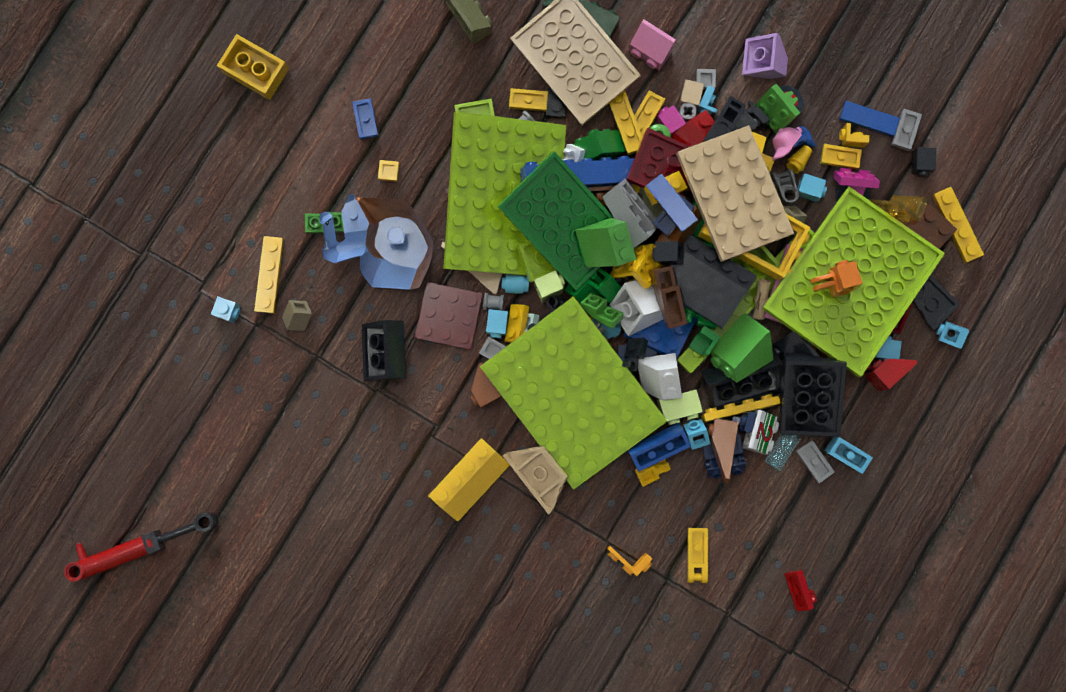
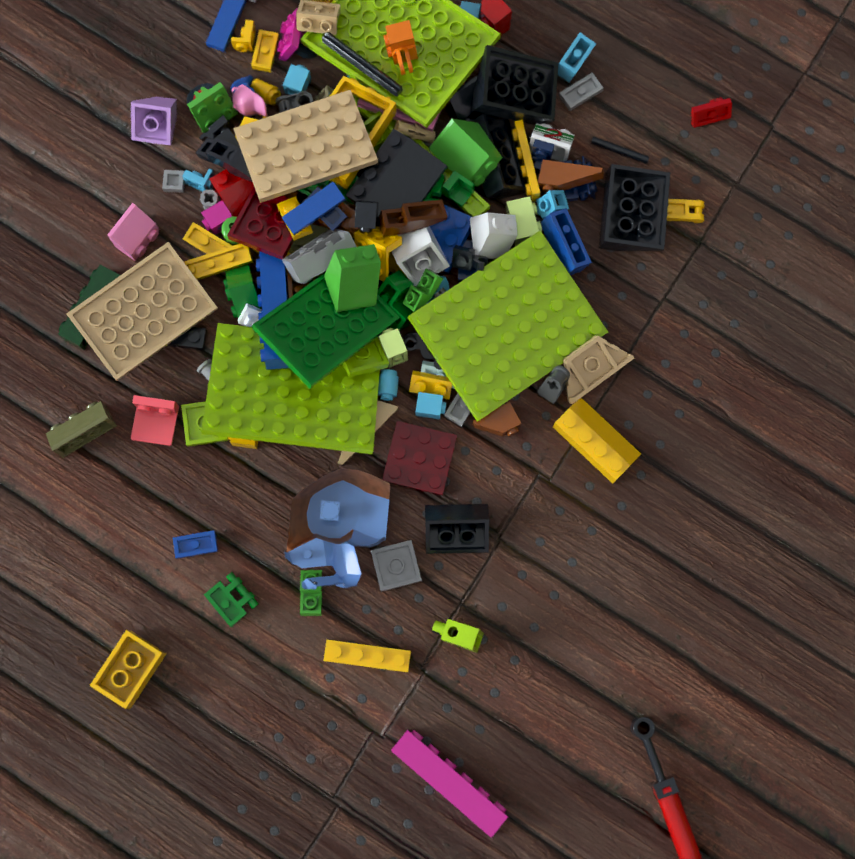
camera: 90 degrees left, 5 degrees down
(157, 350) = (449, 783): none -> dark pink brick
(226, 310) = (406, 702): medium azure brick -> none
(284, 362) = (467, 636): none -> lime torso
(296, 315) = (414, 624): dark tan panel -> none
(312, 149) = (225, 603): none -> green plate
(349, 297) = (396, 565): none -> flat silver plate
(388, 171) = (256, 519): yellow plate -> none
(476, 76) = (154, 420): none -> coral bracket
(493, 302) = (406, 409): light grey bush -> none
(519, 437) = (554, 384): none -> dark grey piece
(528, 100) = (184, 366): yellow plate -> none
(642, 564) = (689, 269): light orange bracket -> none
(652, 472) = (593, 252): yellow plate -> none
(691, 93) = (189, 196): tan panel -> none
(694, 514) = (634, 209): none -> black slope
(757, 500) = (620, 150): none -> black bar
(782, 450) = (569, 122): clear light blue hinge -> none
(823, 244) = (362, 64): none -> black axle
(871, 200) = (317, 17): none -> tan bracket

